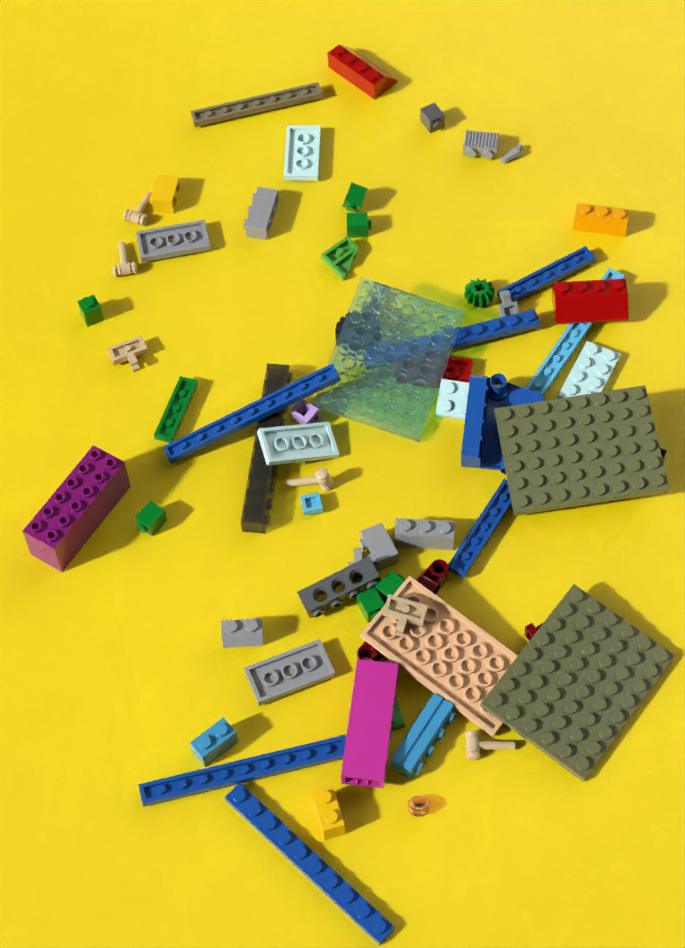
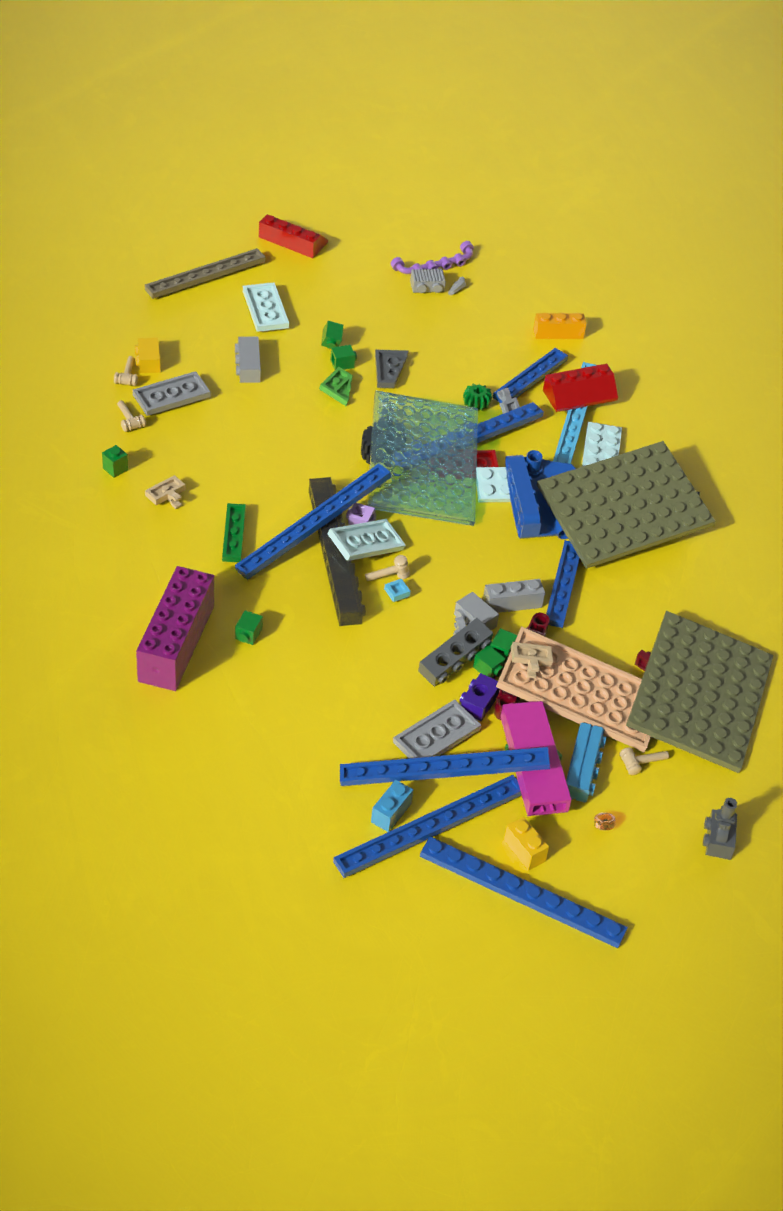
camera: 25 degrees left, 10 degrees down
(242, 633) = (379, 707): light grey brick -> none
(277, 714) = (444, 766): none -> blue plate
(341, 650) = (480, 696): none -> dark purple brick
(401, 242) = (389, 366): none -> dark grey wing
(432, 117) = (374, 265): dark grey brick -> none
(509, 123) = (466, 247): none -> medium lavender bar
(531, 848) = (721, 830): none -> dark grey brick

